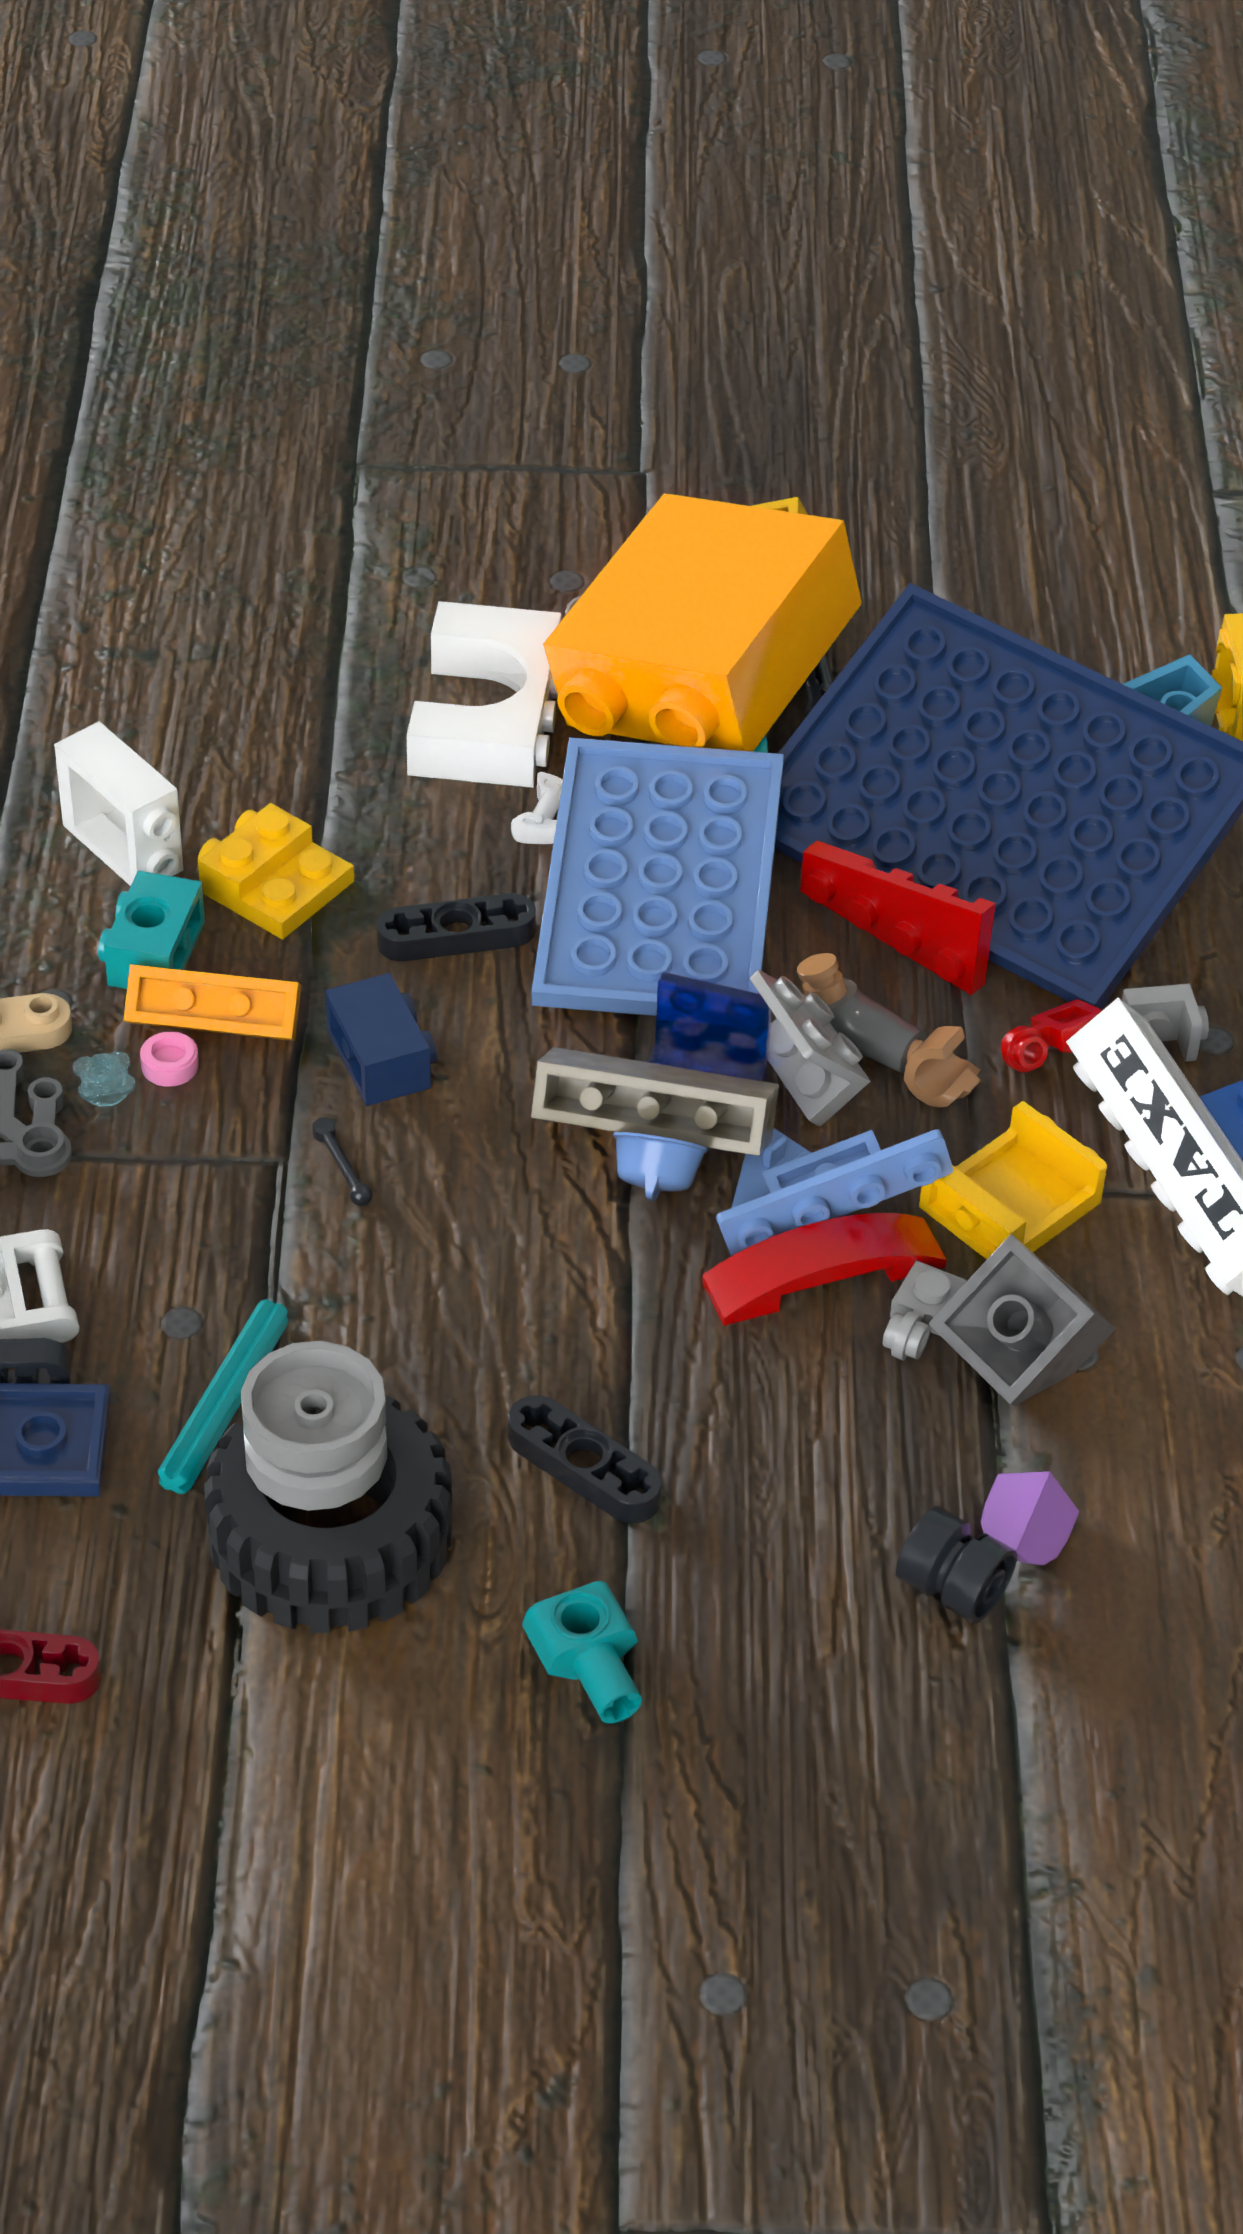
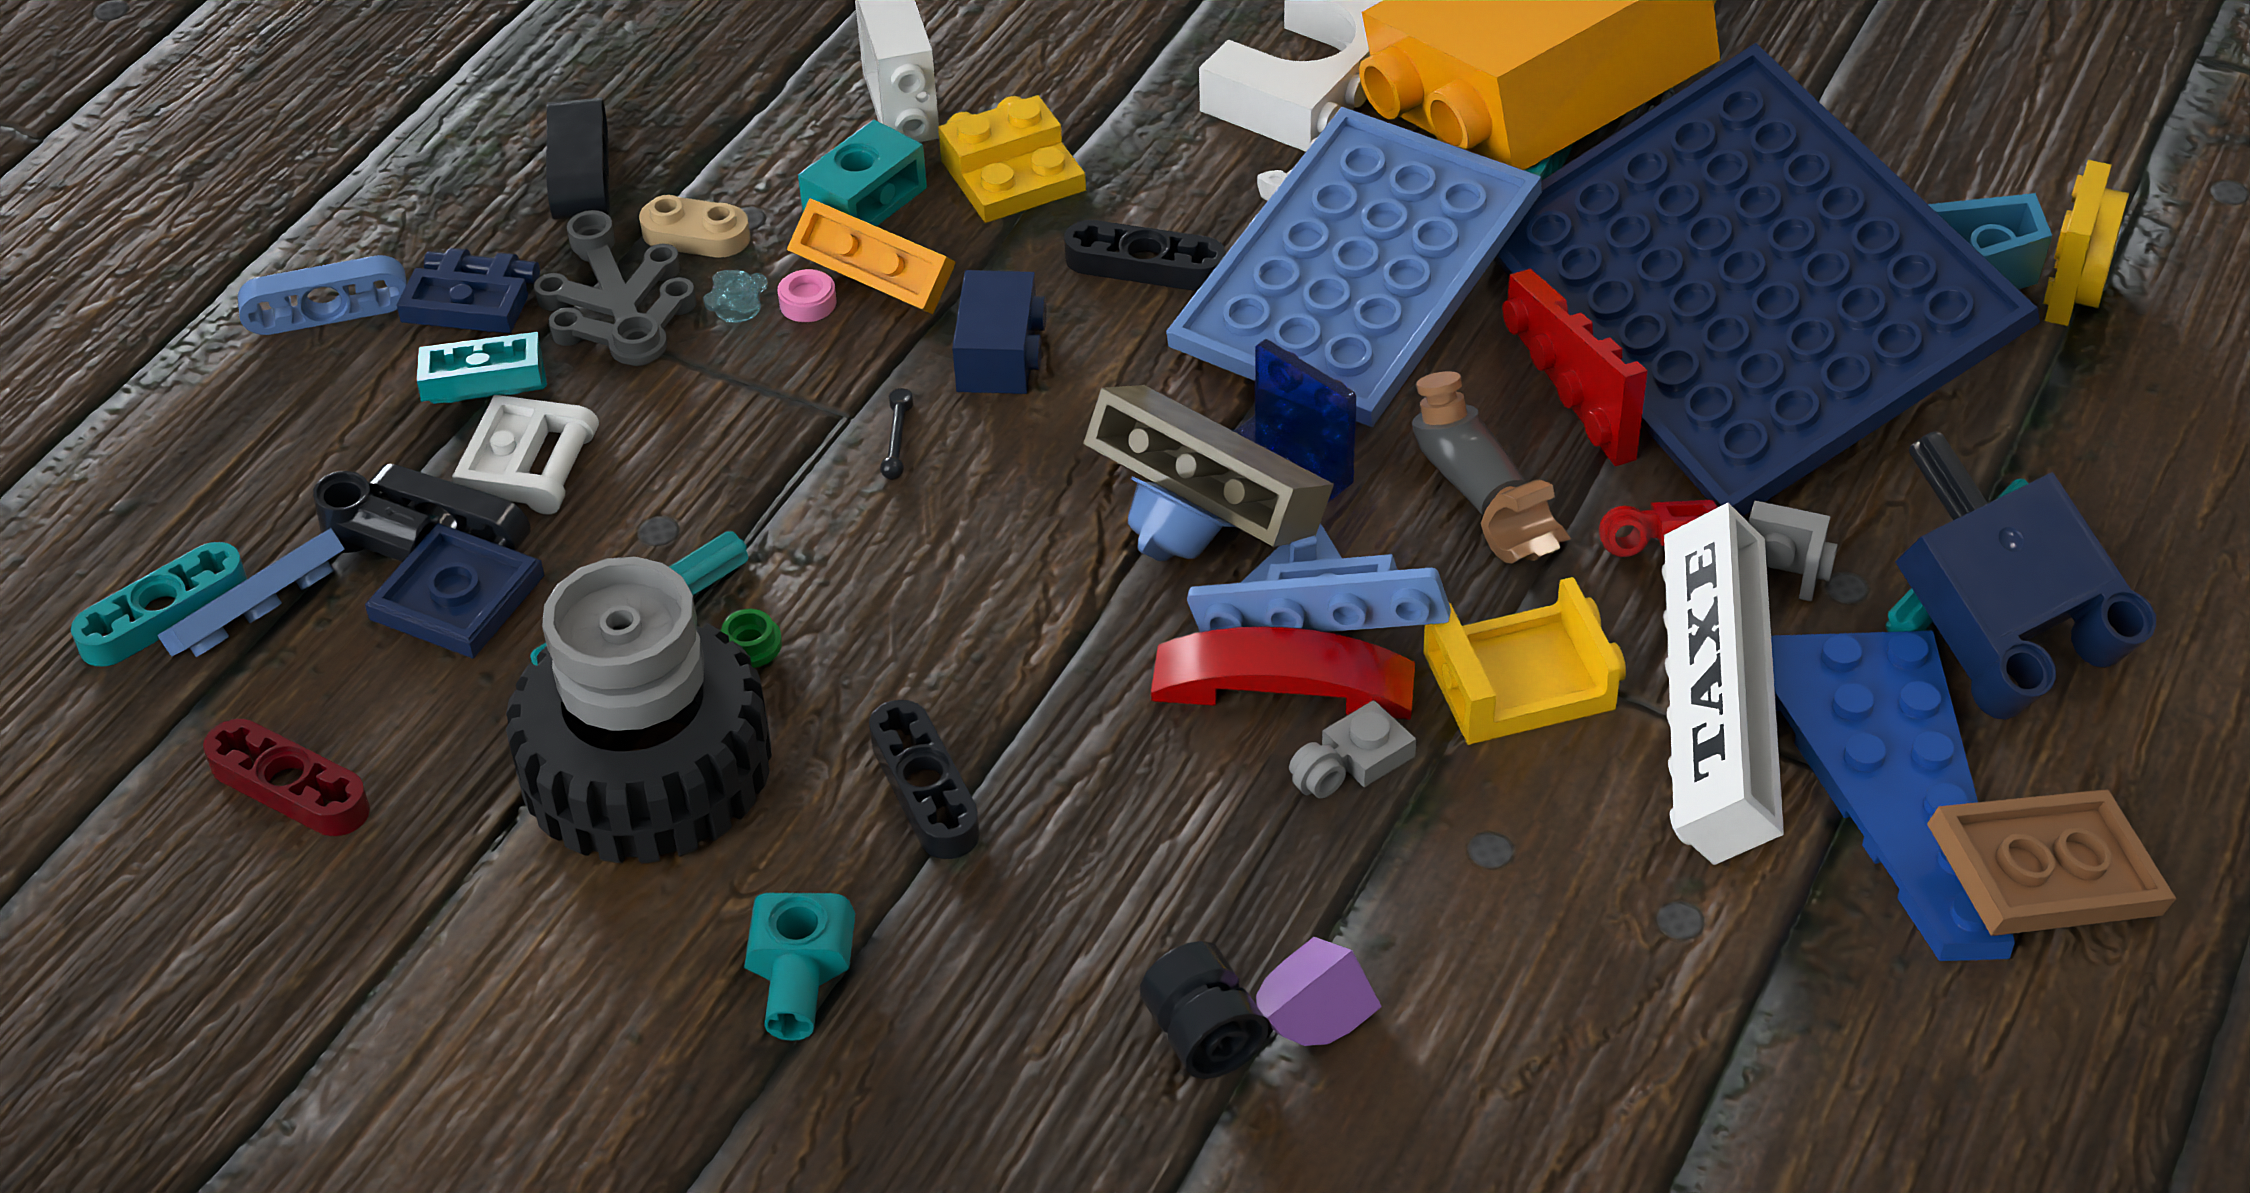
camera: 30 degrees right, 0 degrees up
(807, 1051) = (1389, 453): light grey bracket -> none
(1020, 1323) = (1433, 796): flat silver slope -> none

